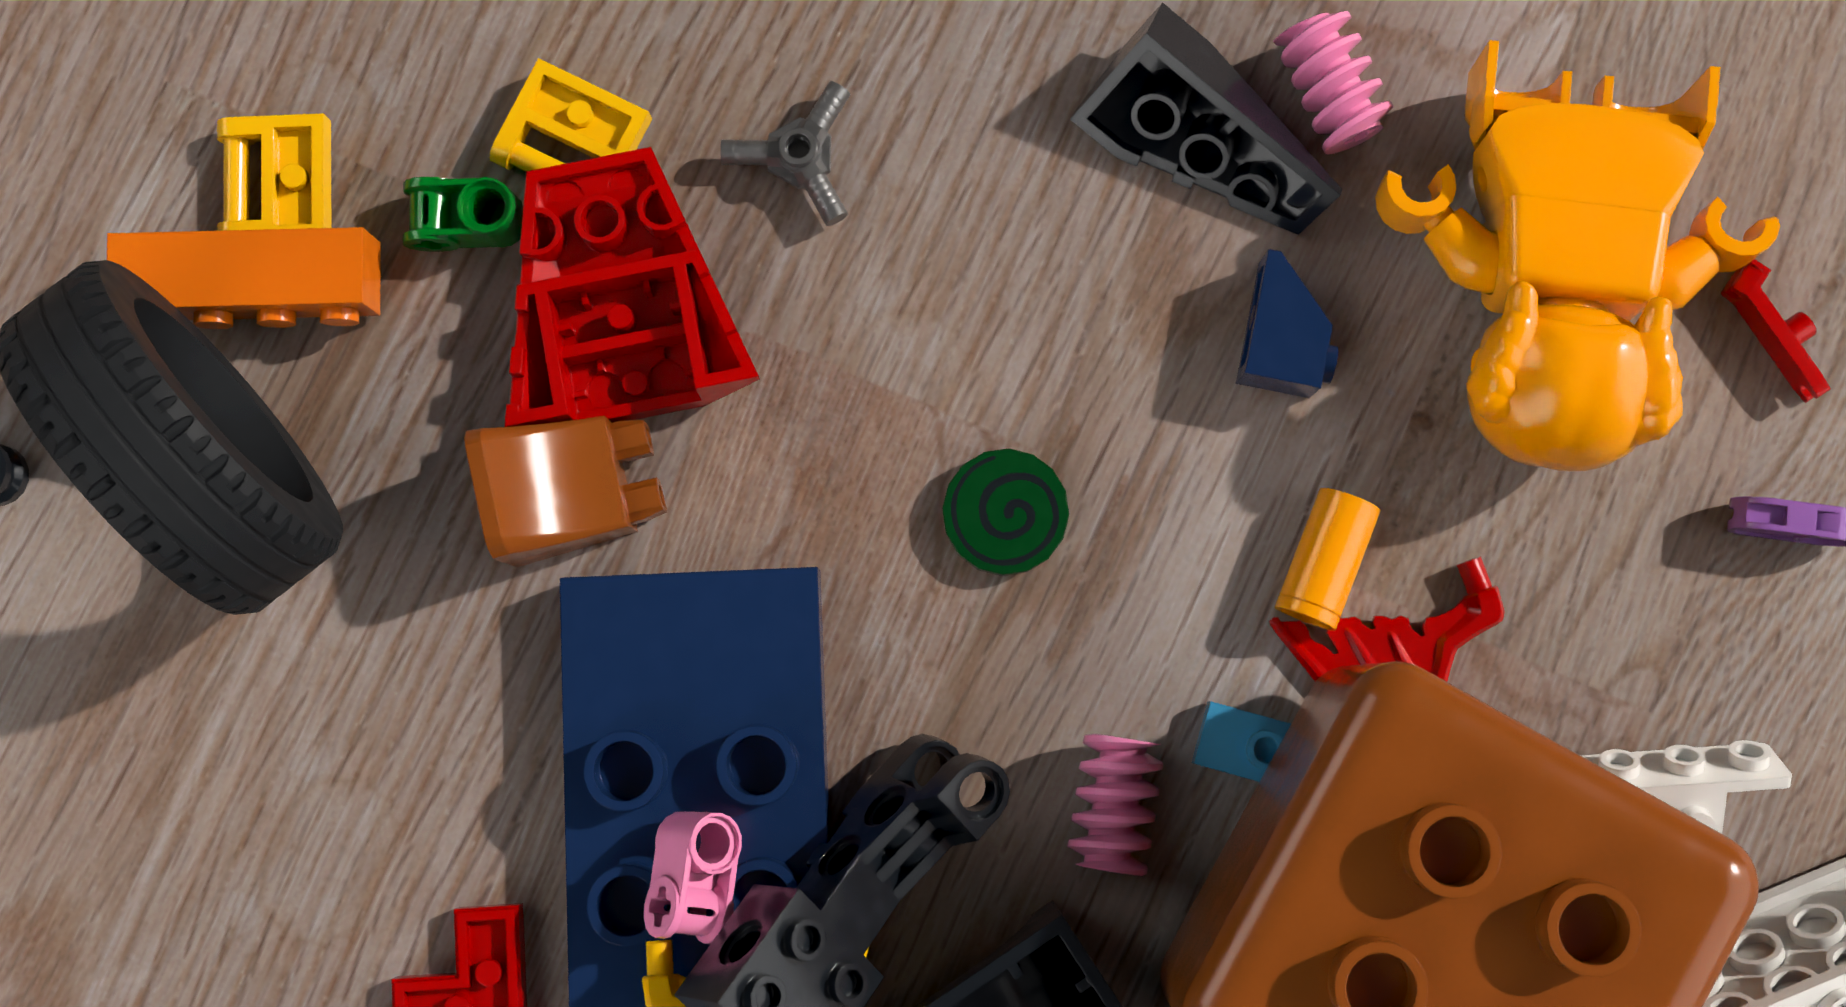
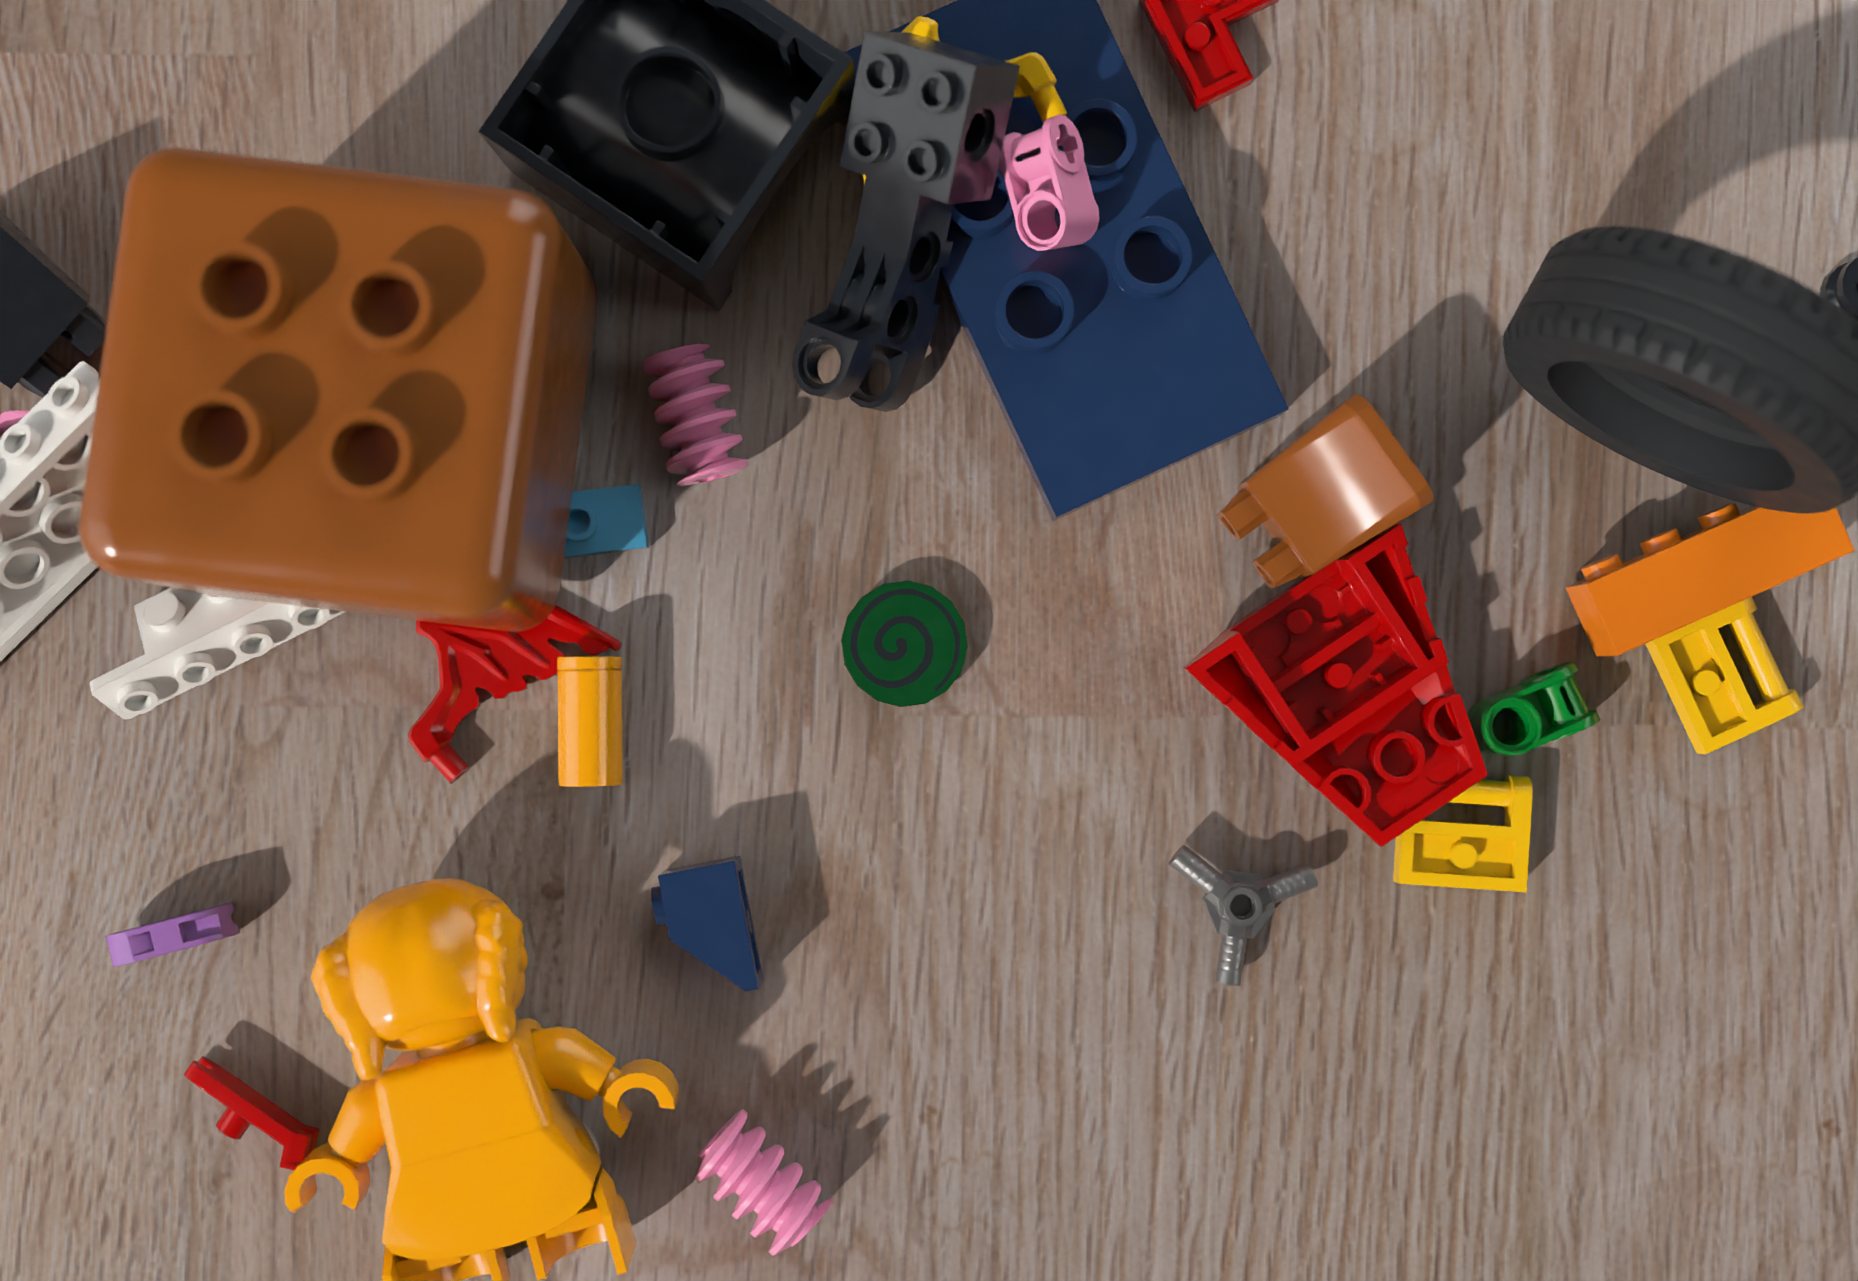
camera: 150 degrees right, 5 degrees up
(1195, 117) = (881, 1094): black wedge -> none

